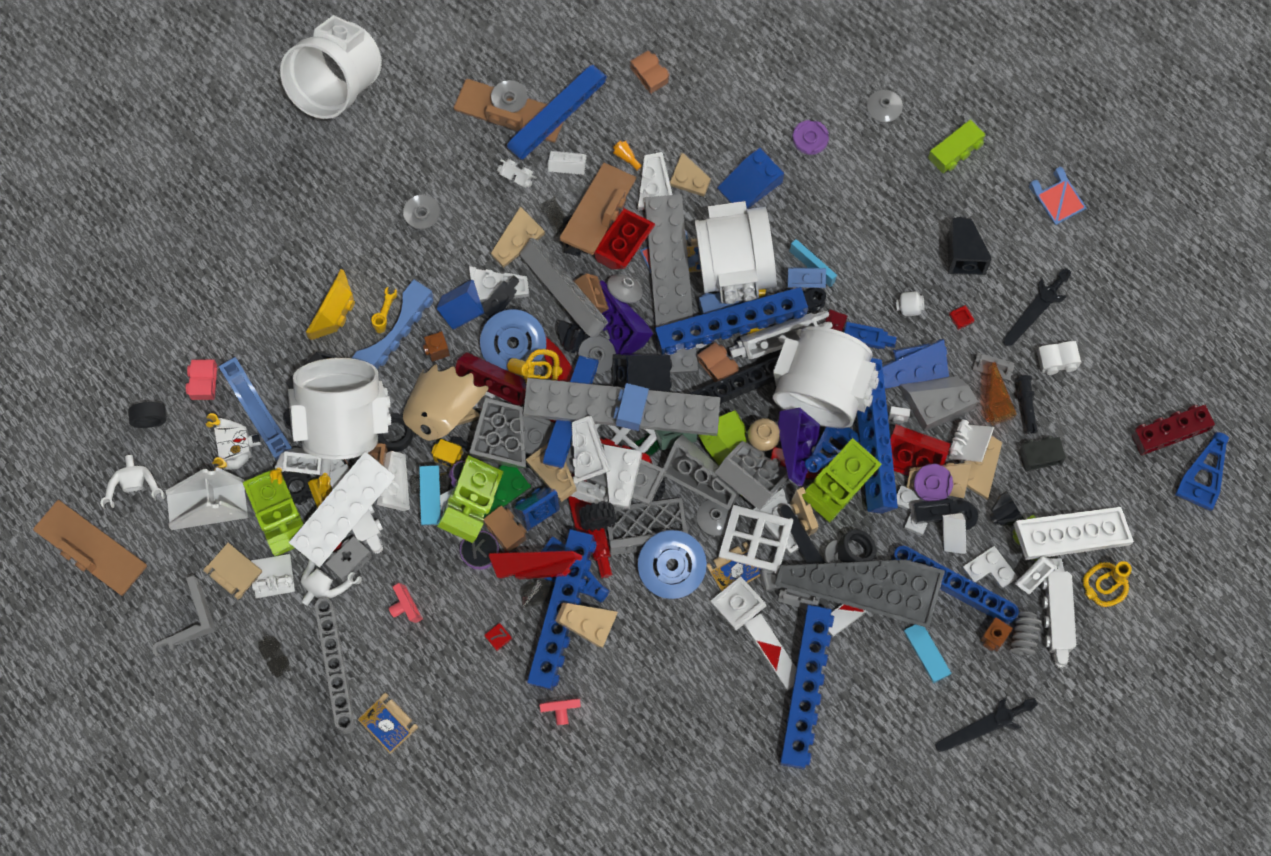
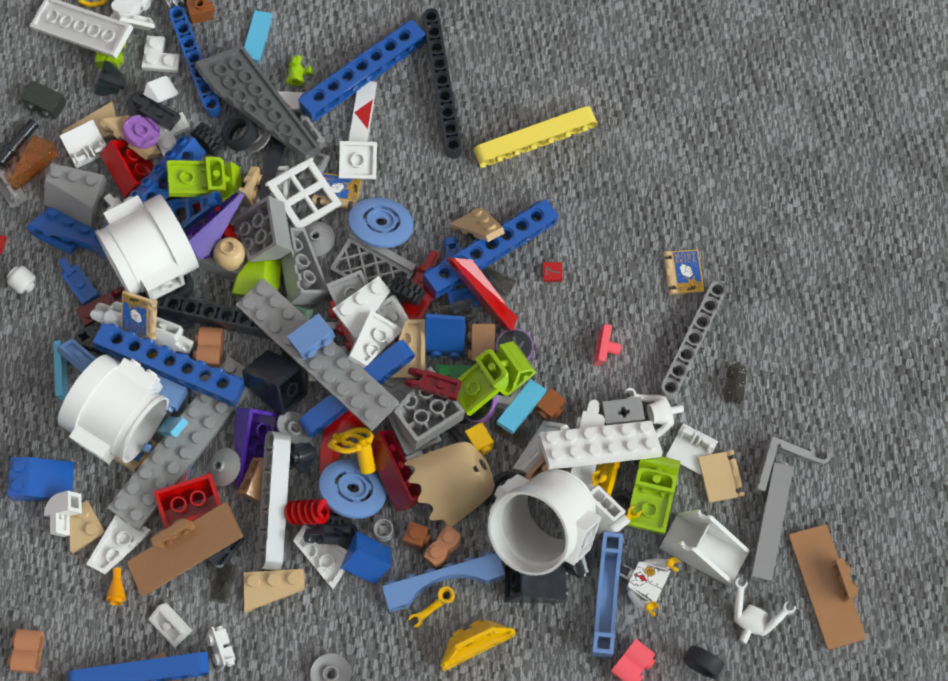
camera: 140 degrees left, 0 degrees up
(166, 562) = (771, 522): none -> light grey brick
(410, 353) = (446, 543): none -> nougat brick
(411, 522) = (550, 405): none -> dark orange brick
(465, 329) = (383, 530): none -> light grey wheel
(507, 451) = (434, 383): none -> dark red hinge
(531, 297) = (307, 512): none -> red piece
(545, 533) = (461, 308): none -> clear smoke slope
(560, 709) = (547, 186): coral tile -> none
(606, 746) = (535, 135): none -> light yellow beam
(685, 278) = (172, 426): none -> medium azure tile
(712, 169) = (59, 510): none -> white brick
(739, 737) = (442, 90): none -> black beam
(779, 329) = (139, 315): none -> piece
(863, 645) = (296, 71): none -> lime piece
(876, 522) = (207, 138): none -> black tyre

